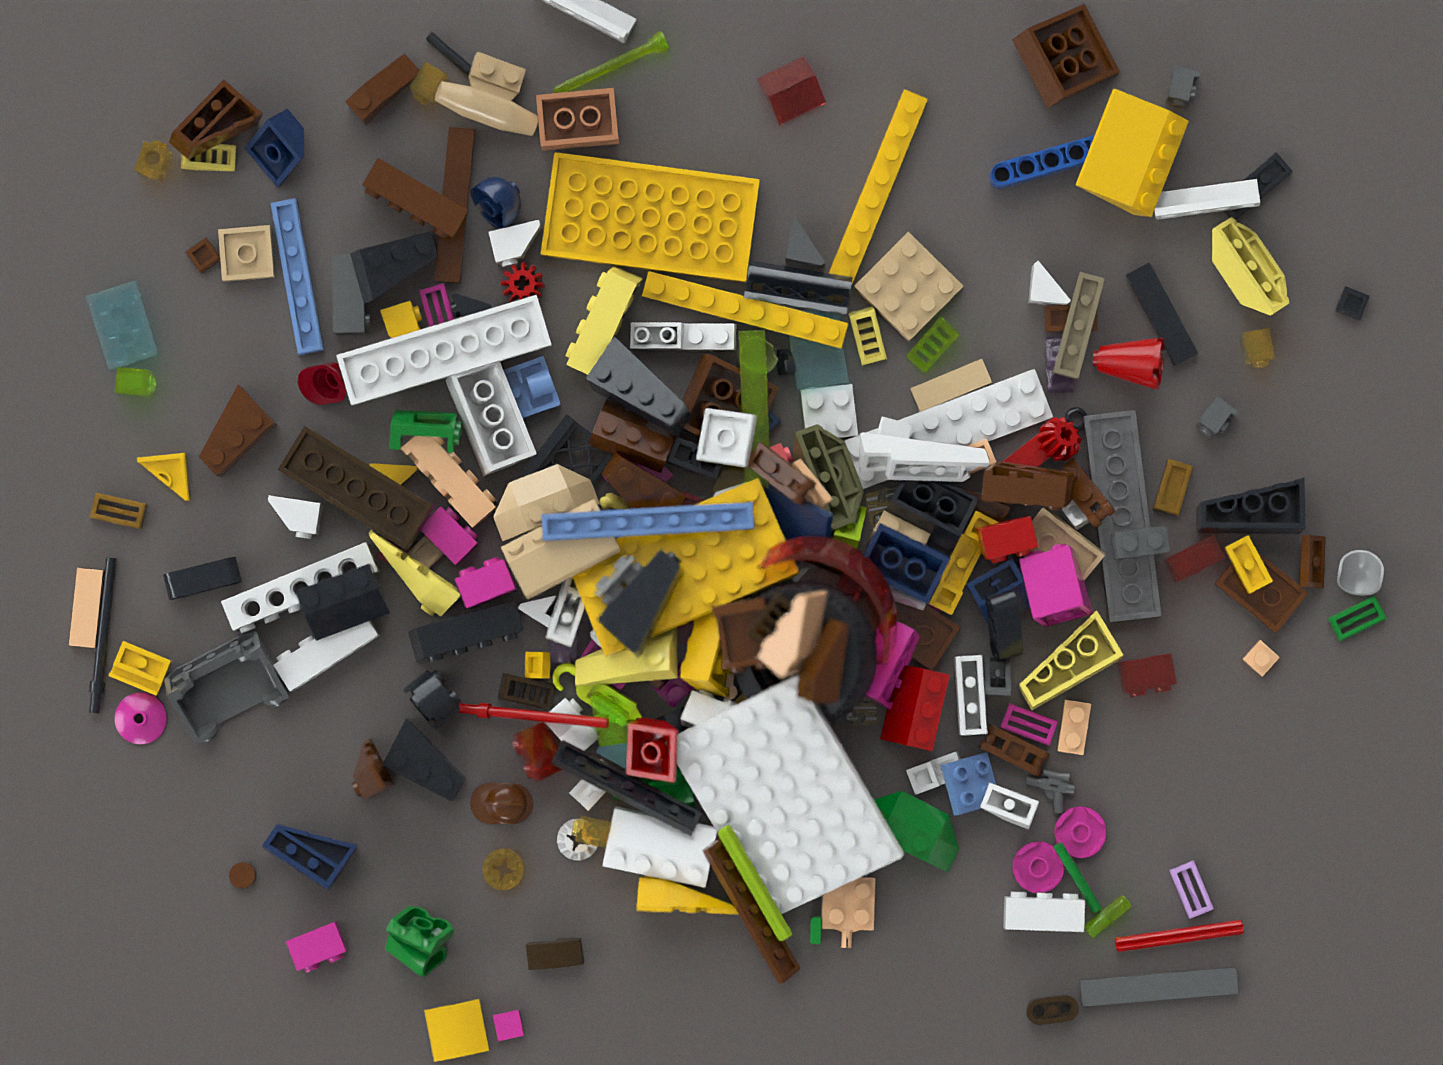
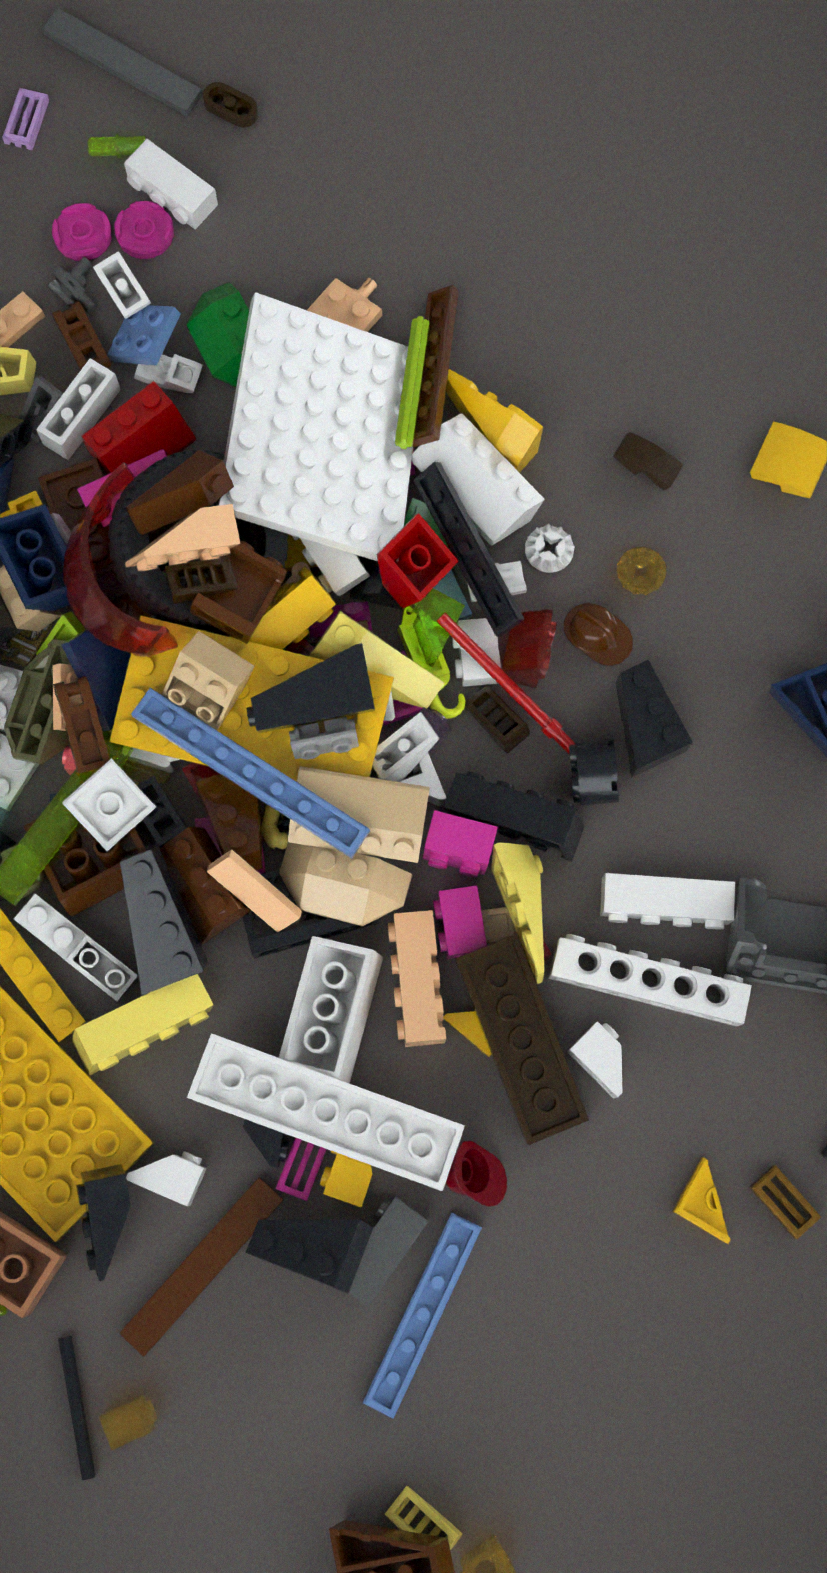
camera: 150 degrees left, 10 degrees down
(122, 325) = (647, 1402): clear light blue plate -> none
(134, 382) = (676, 1328): clear neon green brick -> none
(202, 578) = (745, 1064): black beam -> none
(203, 255) = (506, 1414): reddish brown tile -> none
(236, 432) = (605, 1191): reddish brown wedge -> none
(246, 253) = (458, 1381): tan plate -> none
(278, 146) = (339, 1476): dark blue slope -> none
(342, 601) = (618, 930): black slope -> none
(369, 773) = (711, 739): reddish brown wedge -> none
(382, 88) = (181, 1455): reddish brown slope -> none
(404, 424) = (425, 1061): green window -> none
(415, 197) = (235, 1303): reddish brown wedge -> none
(418, 939) = (771, 558): green piece -> none
(490, 96) = (74, 1357): tan plate -> none
(499, 201) = (152, 1233): dark blue cylinder -> none
(508, 1025) = (738, 432): dark pink tile -> none
(516, 278) = (195, 1136): red gear -> none
(532, 387) = (264, 1010): medium blue plate -> none
(535, 193) = (107, 1207): none -> black slope
(537, 665) = (467, 733): yellow plate -> none
(591, 452) = (254, 891): none -> light nougat tile
(591, 831) = (530, 537): clear yellow brick -> none
(719, 559) = (207, 680): none -> tan slope
(815, 930) = (388, 312): green tile -> none
(1008, 716) = (62, 373): dark pink tile -> none
(1077, 877) = (115, 195): green bar -> none
(1179, 935) = (69, 88): red axle -> none

